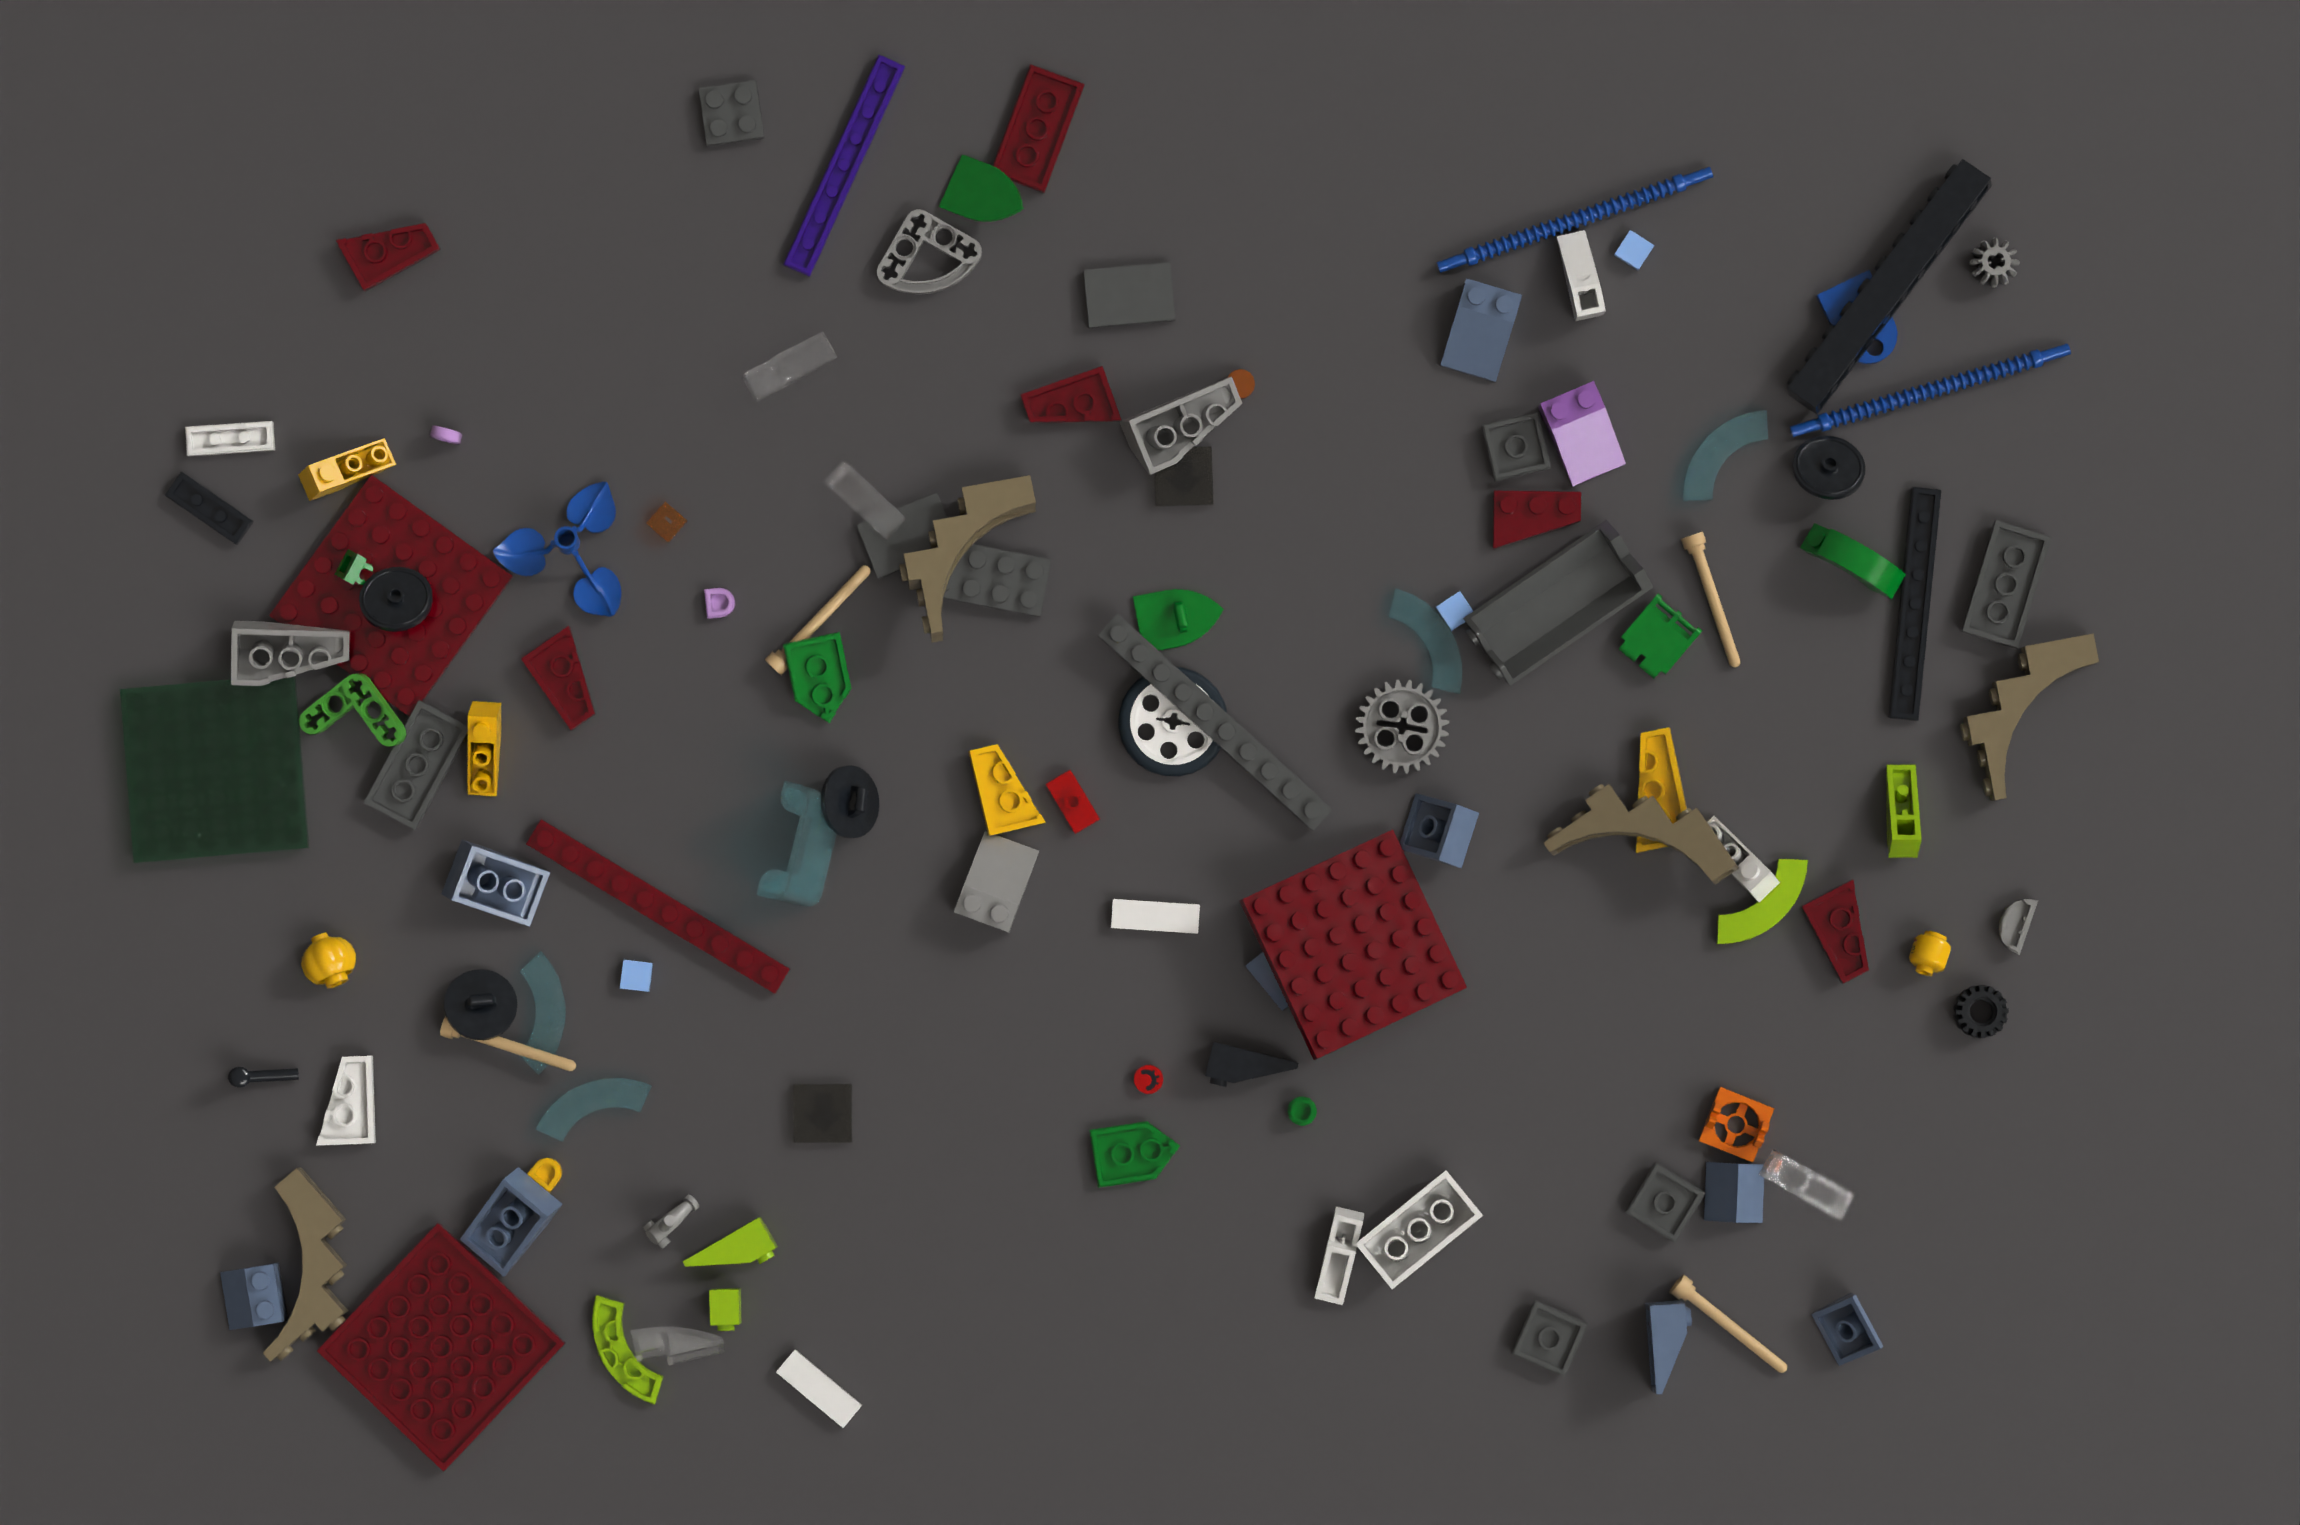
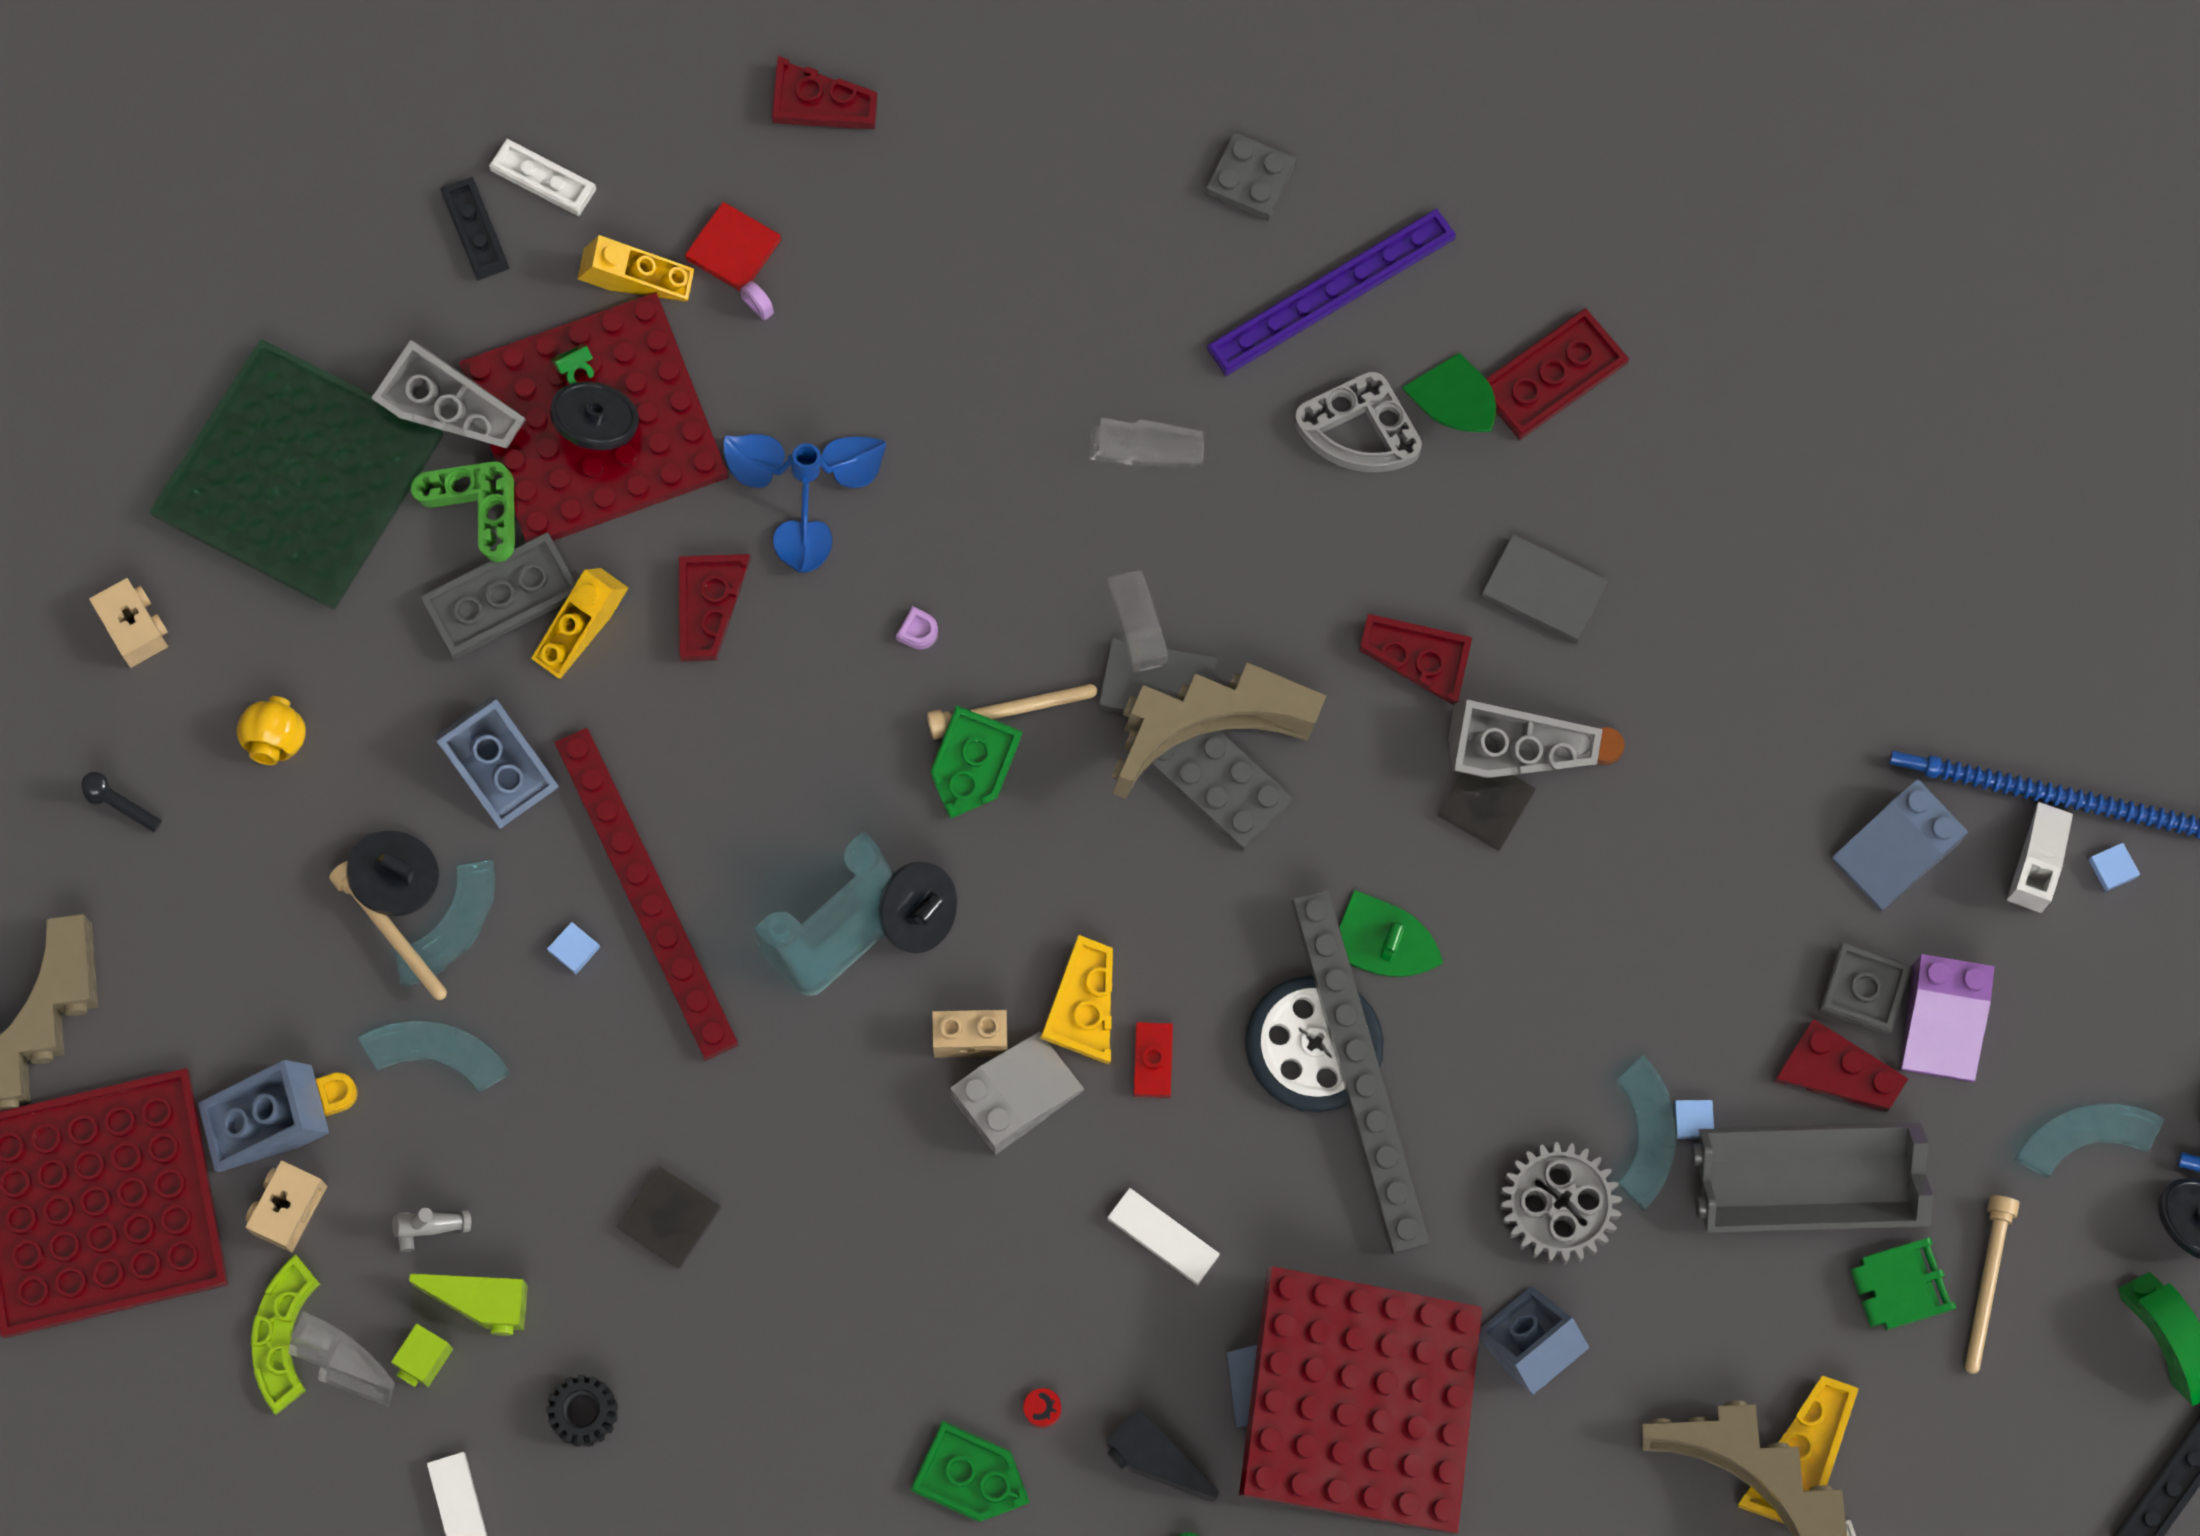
camera: 25 degrees right, 15 degrees down
(160, 947) = (116, 608): none -> tan brick
(351, 1106) = (189, 891): white wing -> none
(401, 404) = (733, 246): none -> red tile
(574, 1254) = (285, 1225): none -> tan brick
(667, 522) = (920, 519): clear orange tile -> none
(835, 1279) = (568, 1392): none -> black tyre
(940, 864) = (969, 1033): none -> tan brick

